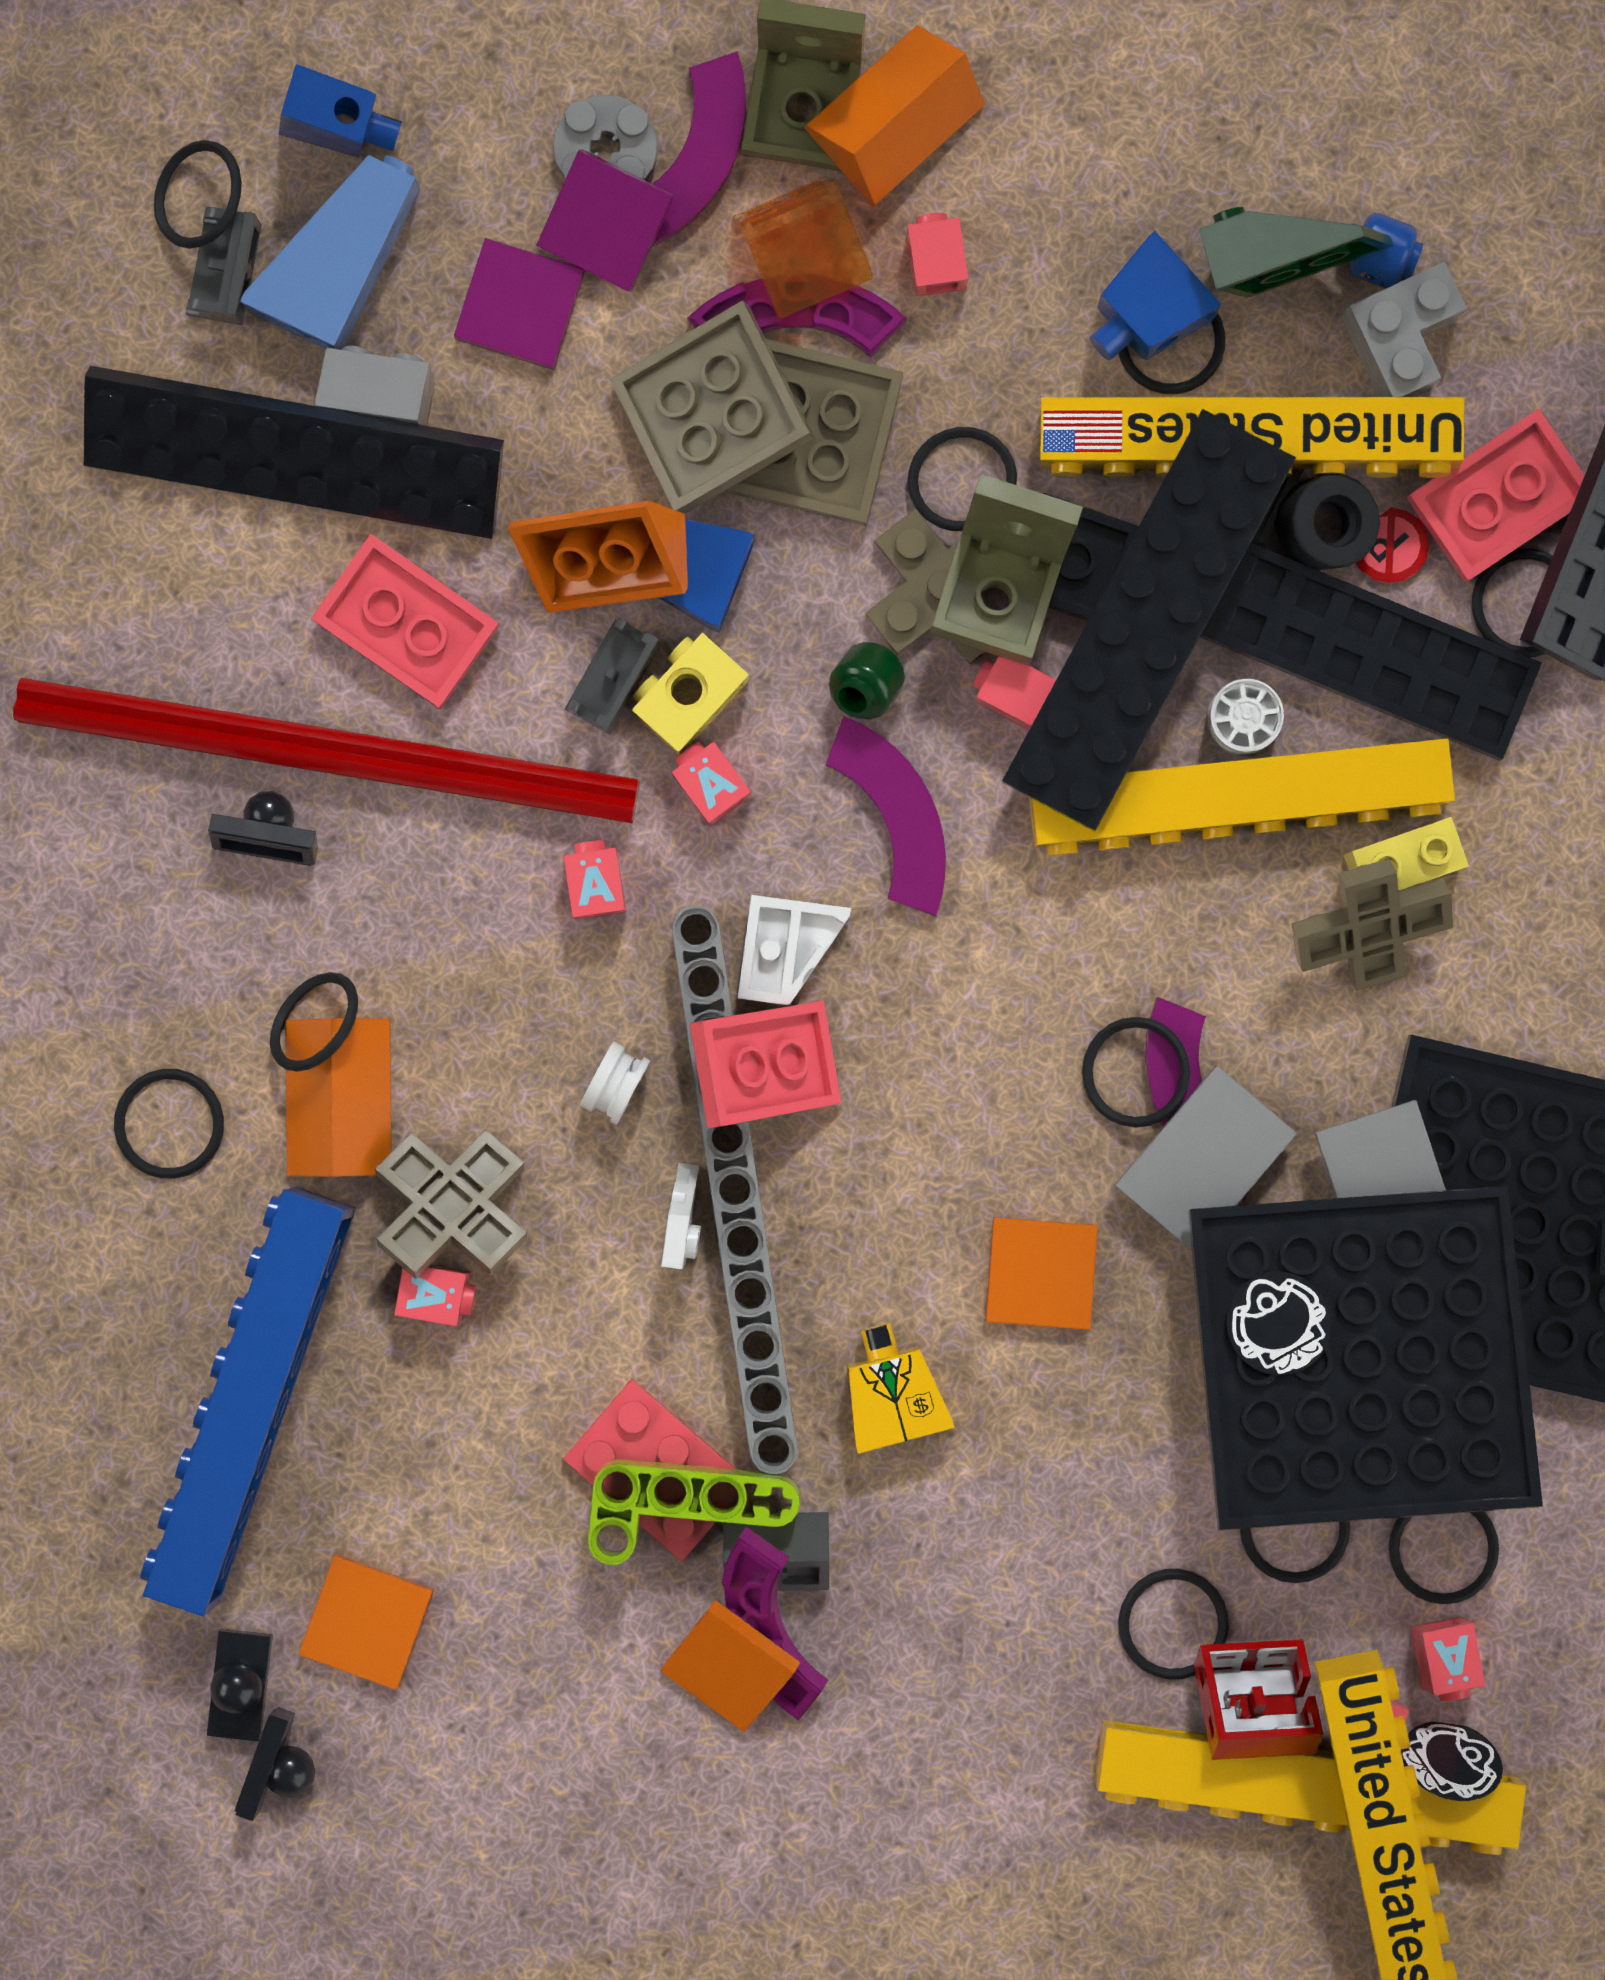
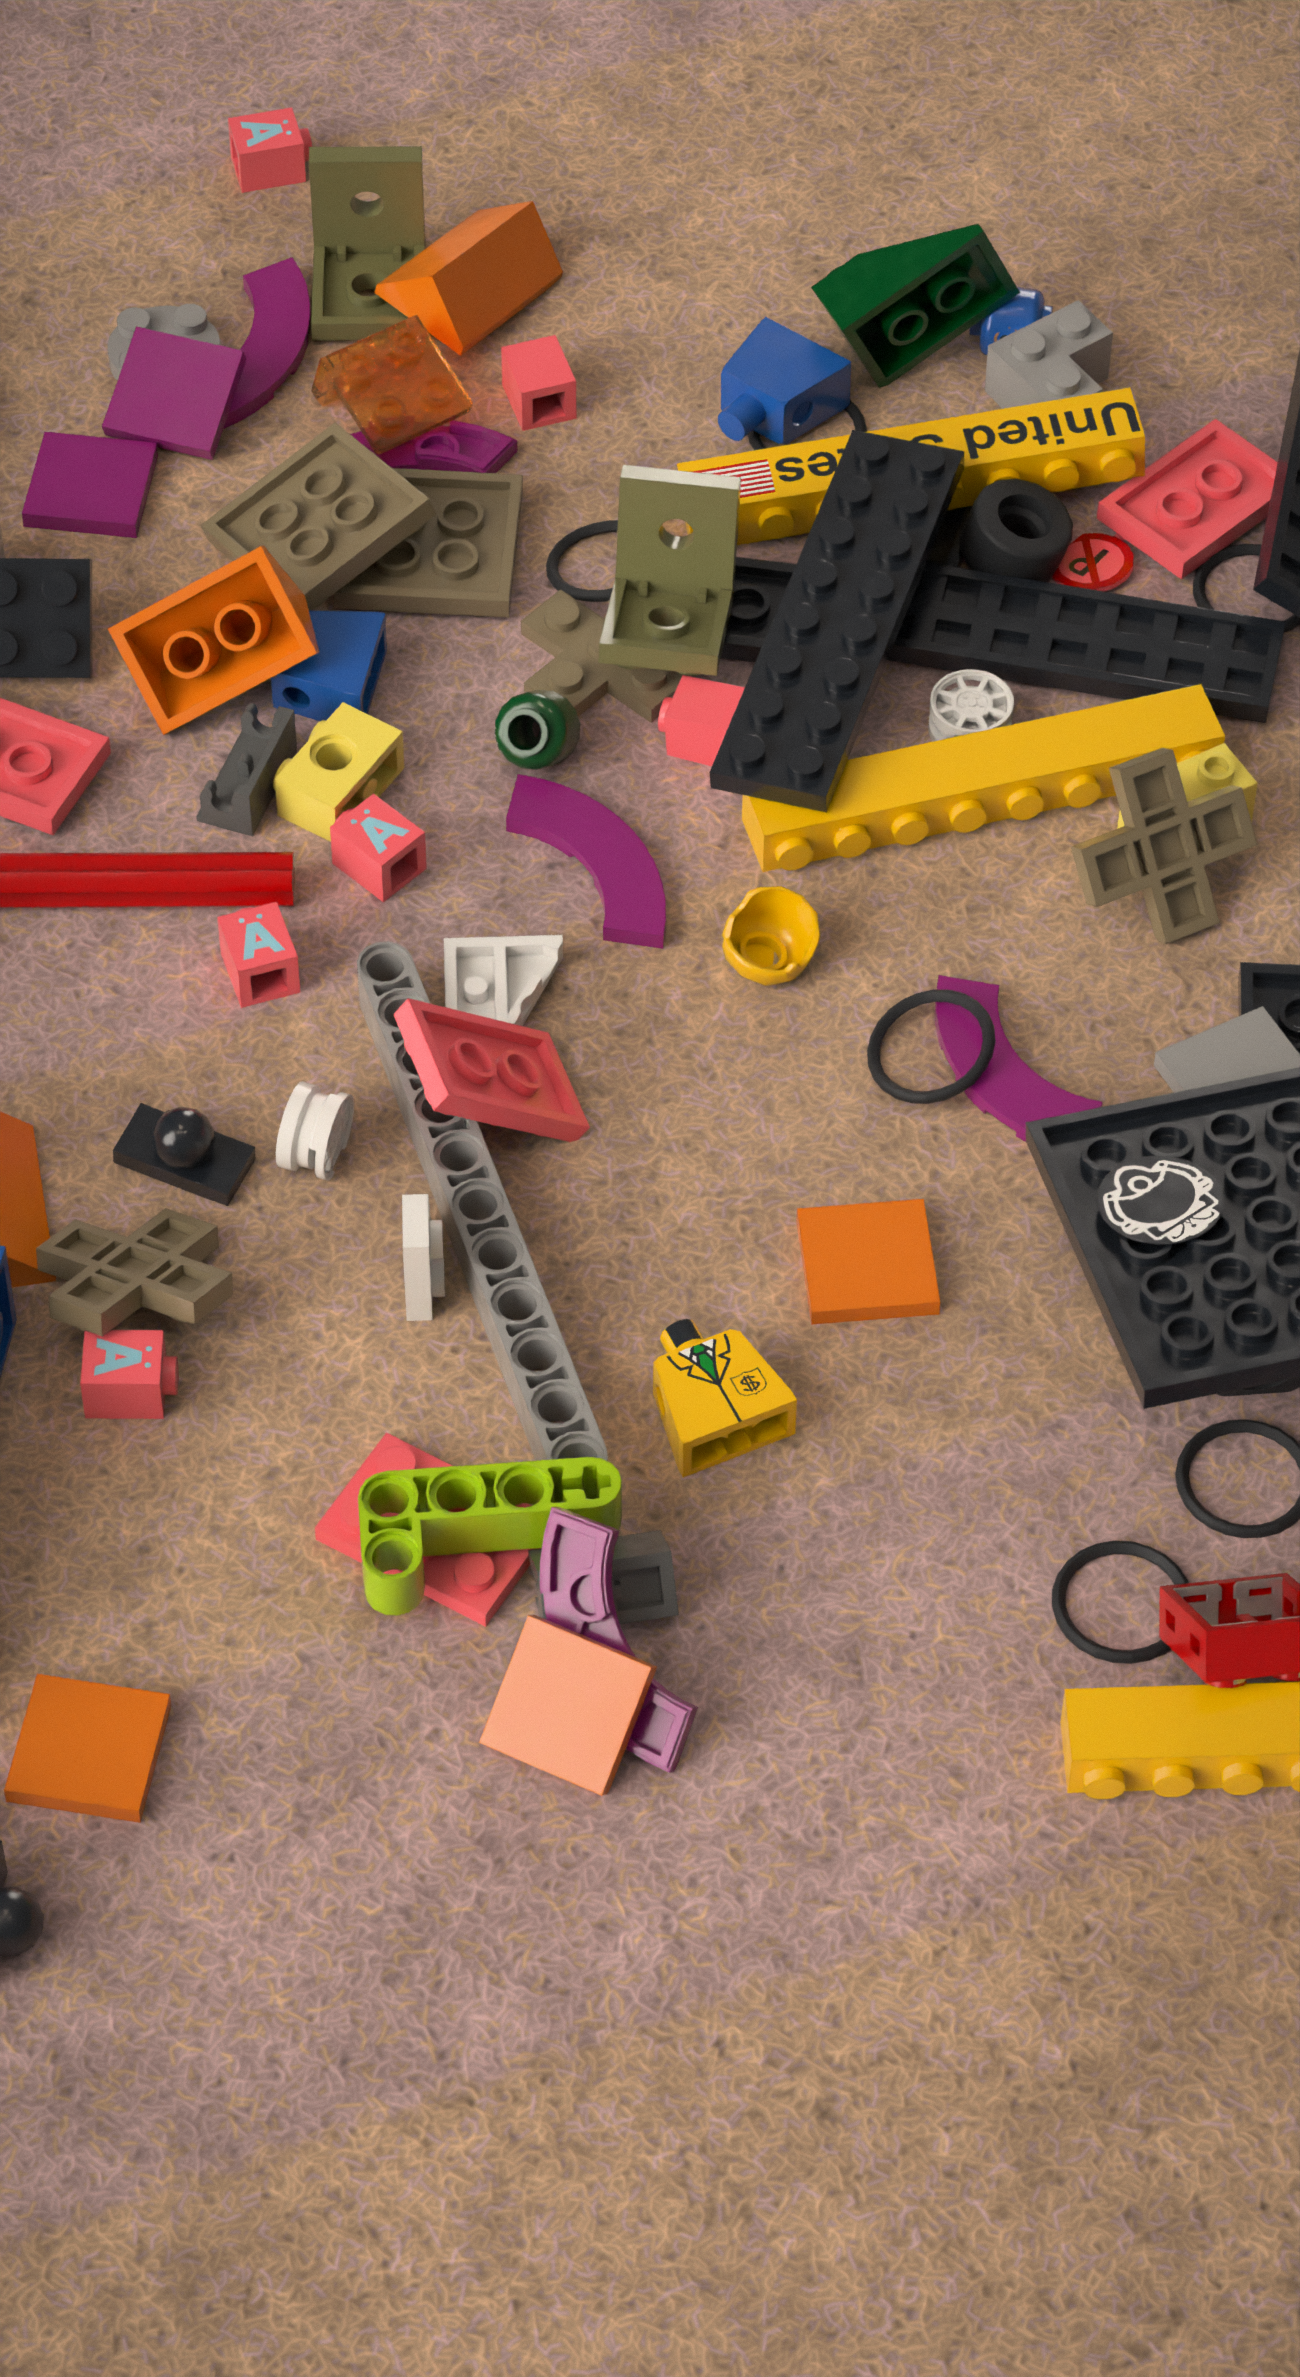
camera: 10 degrees left, 35 degrees down
(508, 1073) = (184, 1152): none -> black tile
(1007, 937) = (771, 923): none -> yellow hair
(1205, 1154) = (1029, 1078): light grey tile -> none

